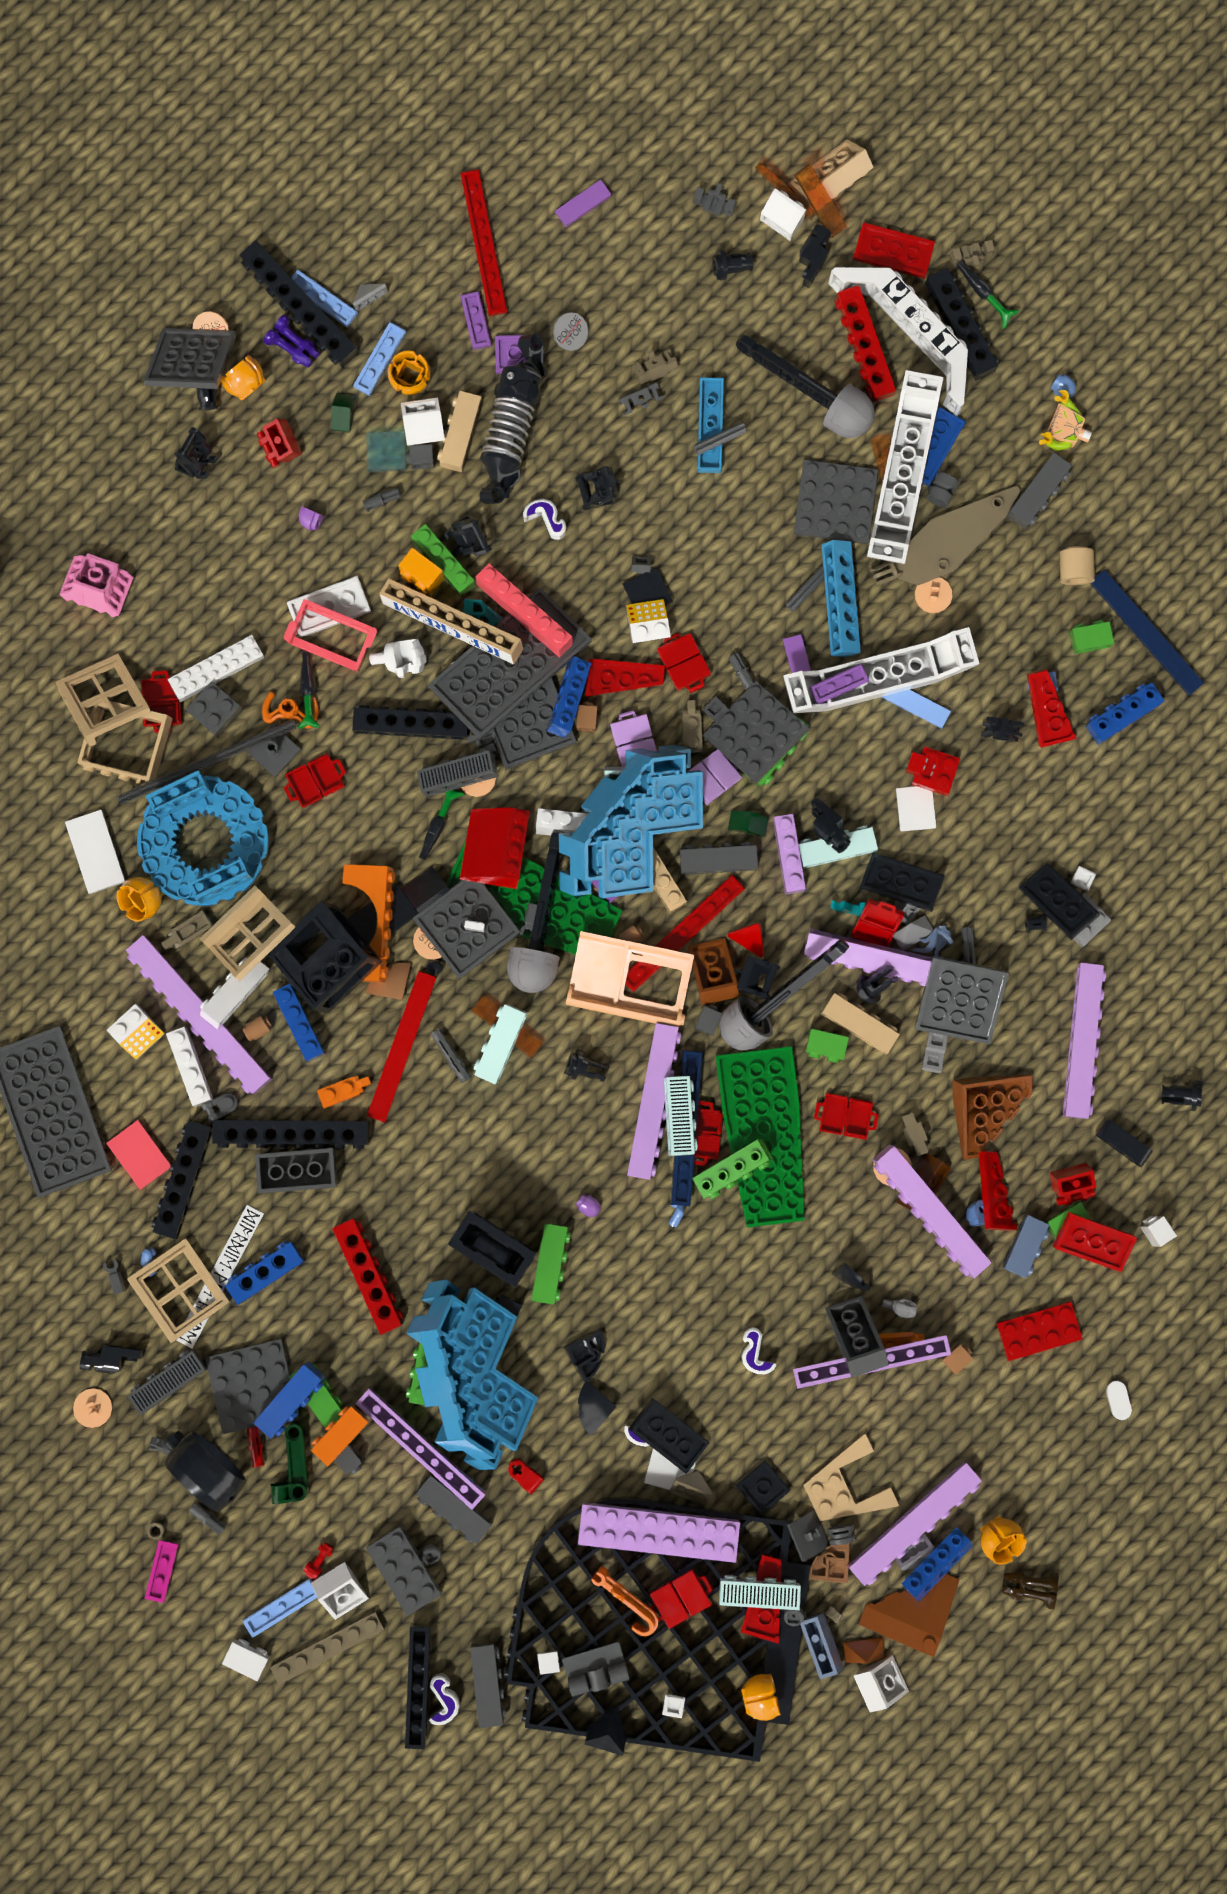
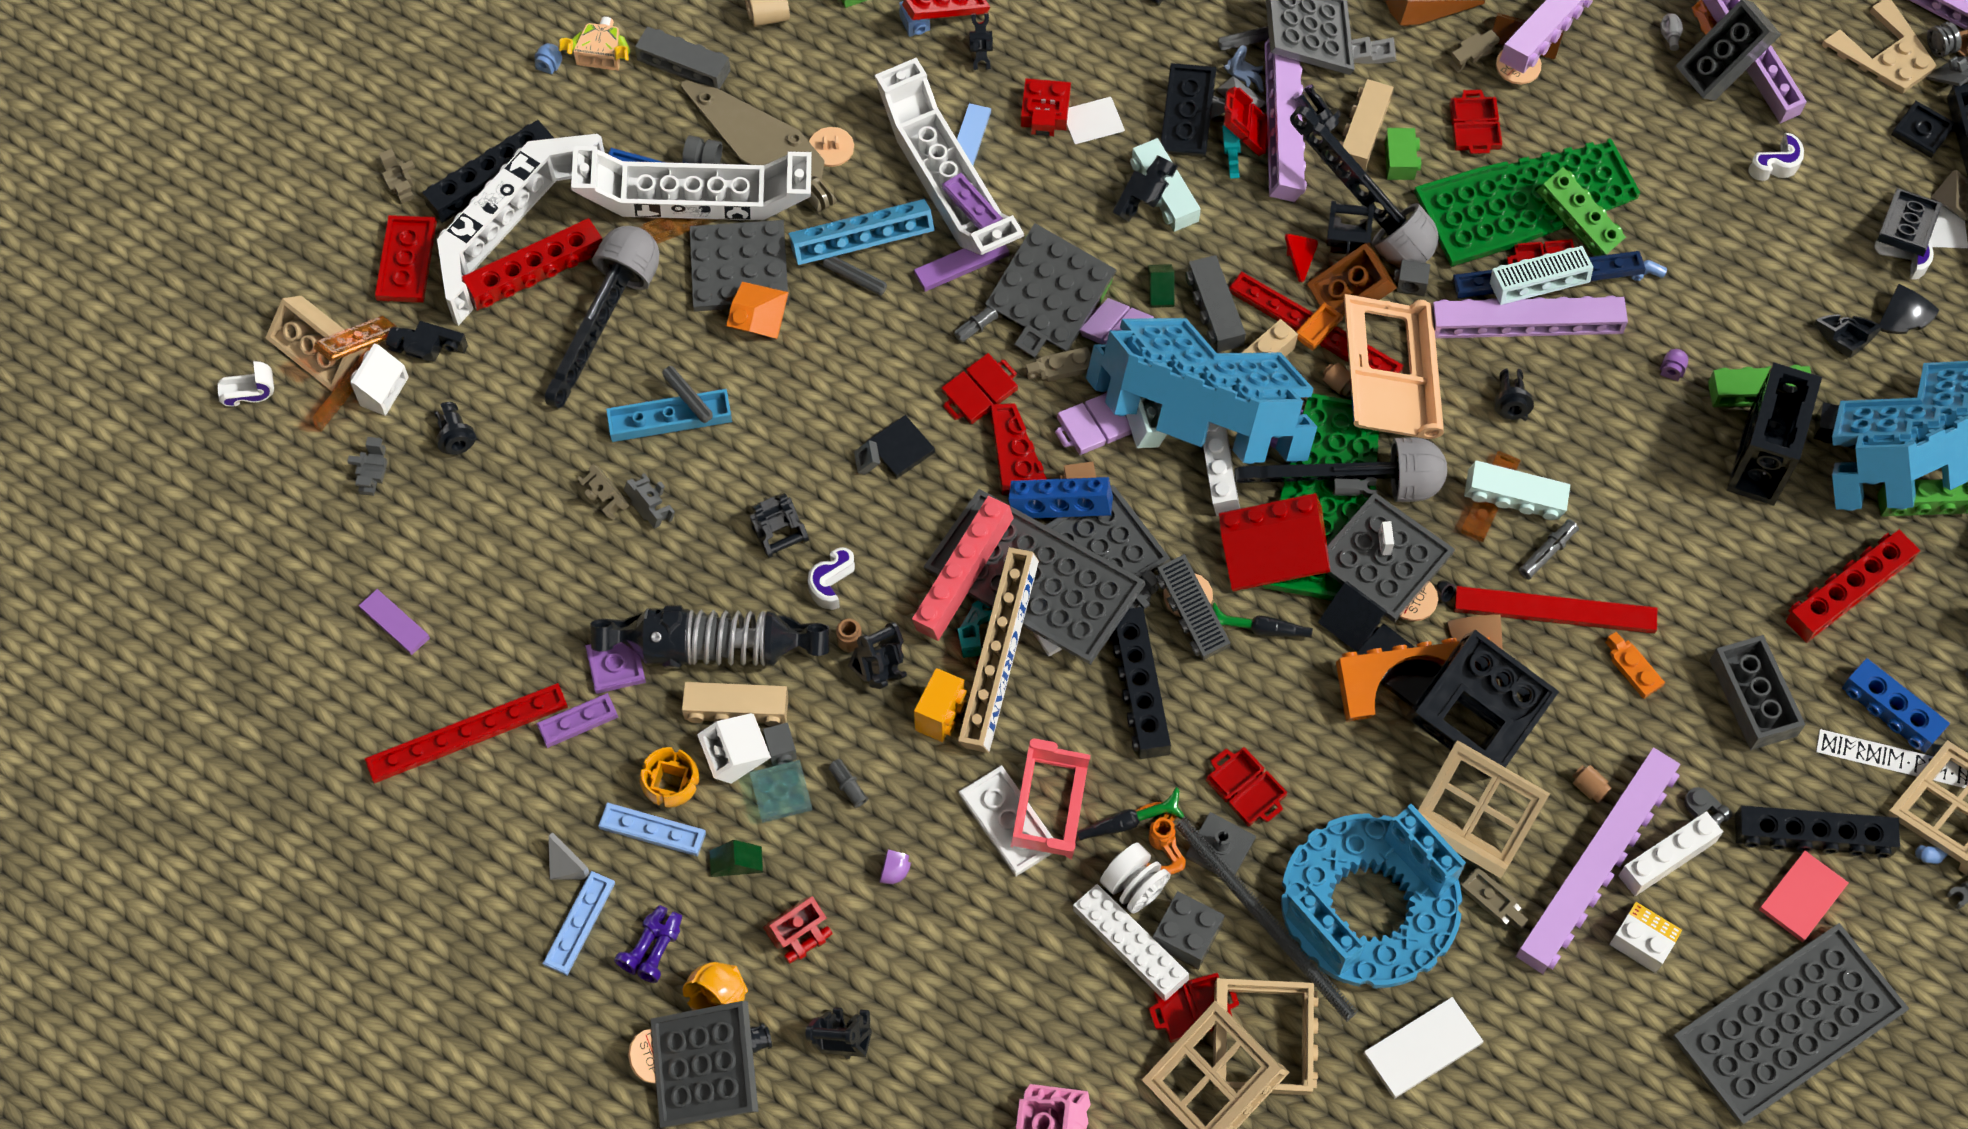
camera: 100 degrees left, 20 degrees down
(139, 898) = (1473, 962): light orange piece -> none
(222, 1127) = (1706, 725): black brick -> none
(232, 995) = (1565, 817): white brick -> none
(256, 253) = (646, 870): black brick -> none
(258, 679) = (1130, 874): none -> white wheel
(299, 1023) = (1568, 732): blue brick -> none
(401, 657) = (1057, 707): white piece -> none
(442, 558) = (902, 700): bright green brick -> none
(494, 515) = (847, 634): none -> medium nougat brick
(570, 331) = (574, 597): light grey piece -> none
(648, 621) = (940, 432): slope -> none
(679, 933) = (1319, 326): none -> orange tile
(785, 504) = (757, 310): none -> orange slope
(789, 854) = (1188, 230): lavender brick -> none
(801, 118) = (247, 388): none -> white animal
(850, 1277) = (1658, 82): black brick -> none
(984, 291) = (444, 154): black piece -> none

